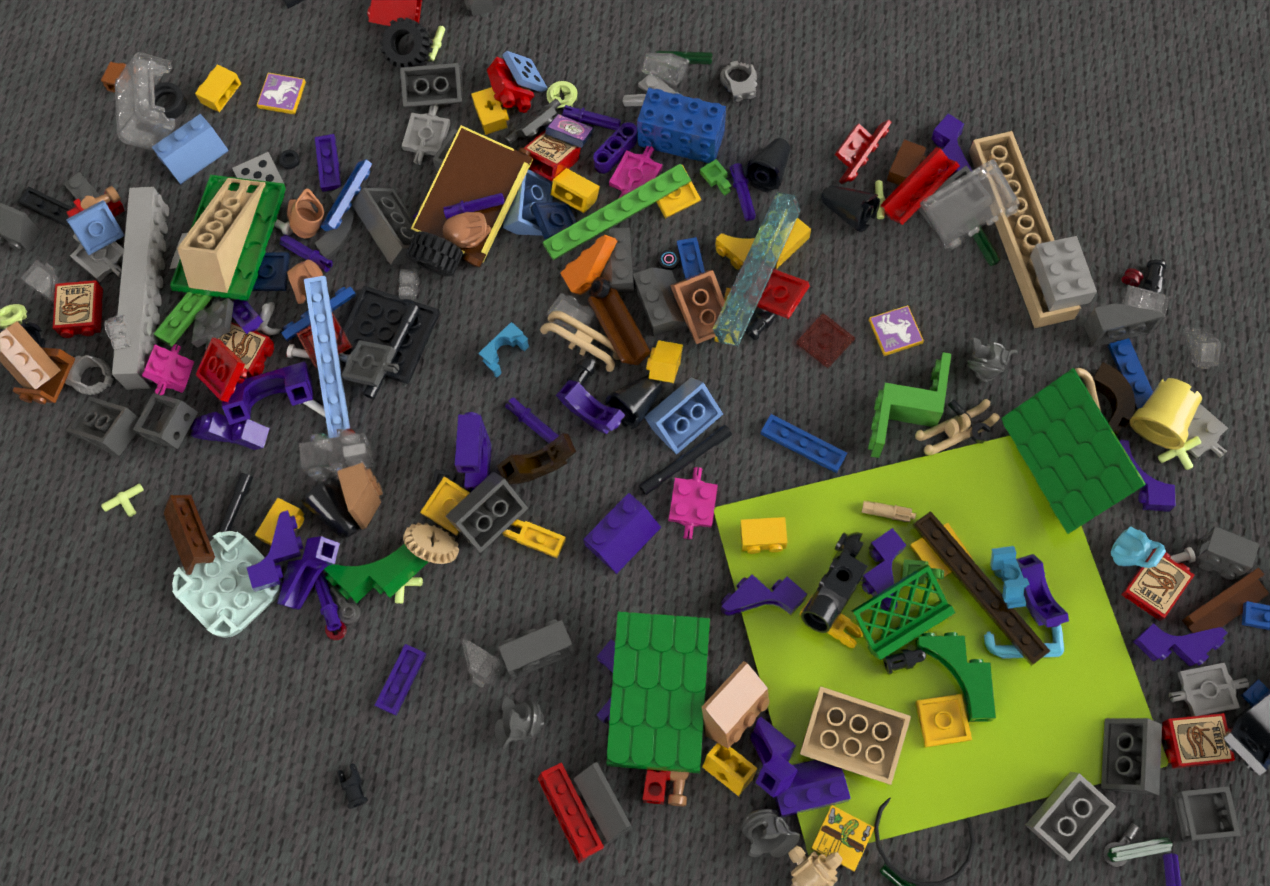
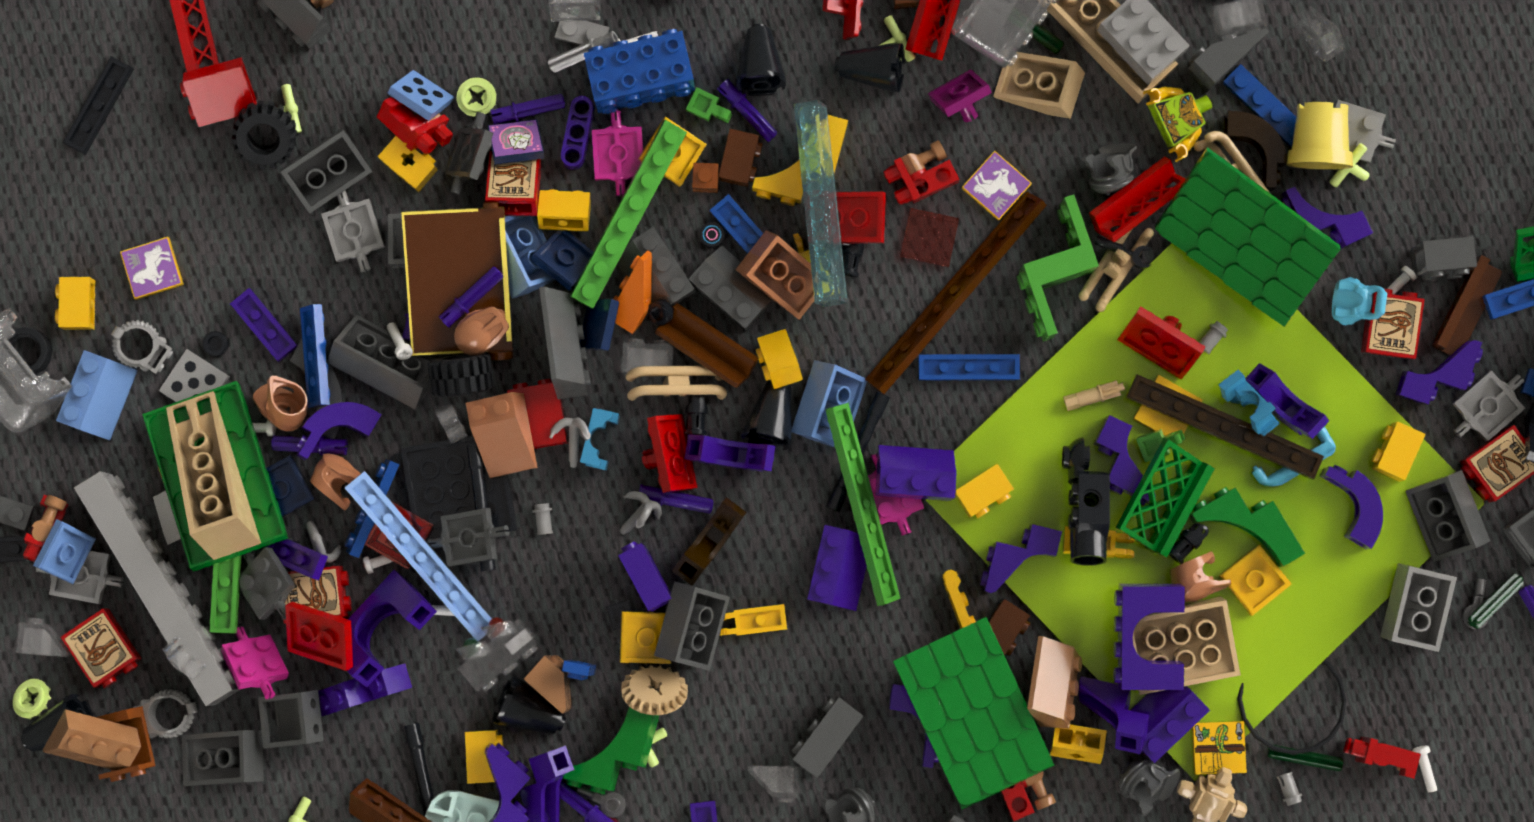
camera: 35 degrees left, 15 degrees up
(243, 147) = (146, 363): none -> light grey piece
(332, 239) = (344, 414): none -> dark purple arch
(383, 491) = (578, 669): none -> blue plate
(407, 220) = (403, 351): none -> white piece
(431, 384) = (543, 518): none -> light grey pin
(437, 306) = (502, 433): none -> nougat slope
(471, 313) = (543, 412): none -> red brick
(491, 332) = (576, 428): none -> light grey piece
(508, 411) = (640, 516): none -> light grey piece
(517, 269) = (564, 343): none -> dark grey slope
(546, 383) = (669, 453): none -> red plate
(551, 273) = (599, 325): none -> dark blue tile
(665, 495) = (862, 504): none -> bright green plate
(686, 218) = (705, 177): none -> dark orange brick
(700, 593) = (958, 599): none -> yellow hinge
(718, 218) = (739, 158): none -> reddish brown brick
(718, 494) = (915, 473): none -> dark purple slope
(724, 645) = (1007, 623): none -> reddish brown brick
(828, 384) = (955, 292): none -> reddish brown plate
(834, 674) = (1133, 604): none -> dark purple arch
(840, 297) = (917, 180): none -> red hips
(890, 692) = (1195, 581): none -> nougat helmet
(903, 253) = (960, 95): none -> magenta tile
(962, 496) = (1161, 342): none -> red plate
(968, 277) = (1041, 84): none -> tan slope
(996, 388) = (1134, 198): none -> red fence
(1005, 517) = (1213, 336): none -> light grey pin
(1060, 347) = (1178, 117): none -> torso
(1067, 705) = (1367, 504): none -> dark purple arch
(1114, 682) = (1397, 451): none -> yellow brick

